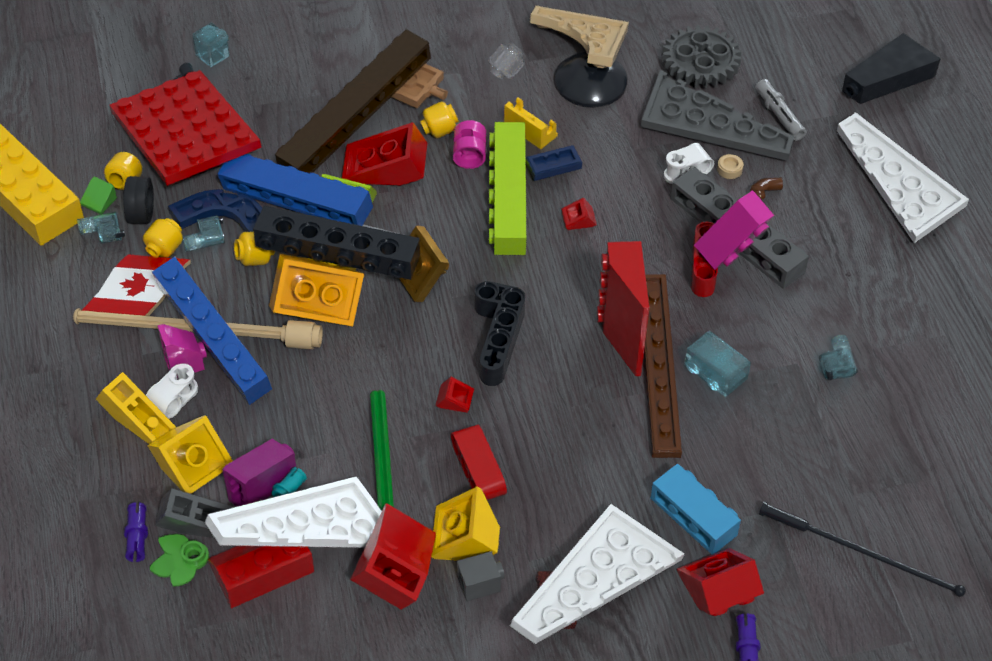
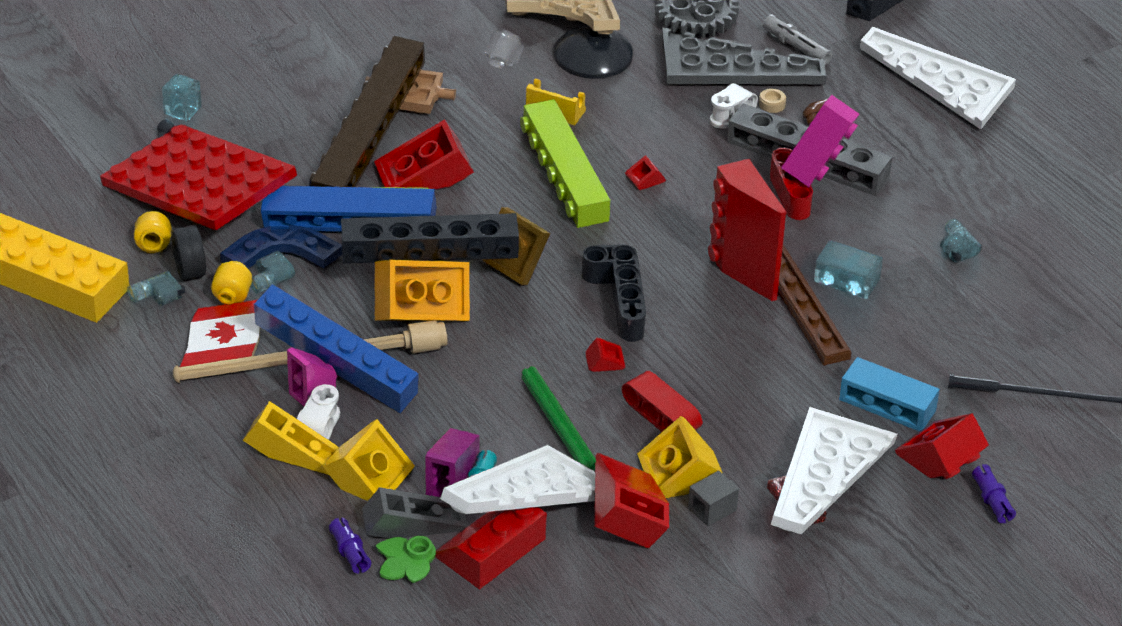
camera: 20 degrees left, 10 degrees down
(98, 195) = (139, 259): bright green slope -> none
(248, 253) = (330, 273): yellow head -> none
(439, 119) = (463, 116): yellow head -> none
(469, 144) = (505, 132): dark pink wheel -> none
(553, 162) = (599, 131): dark blue plate -> none

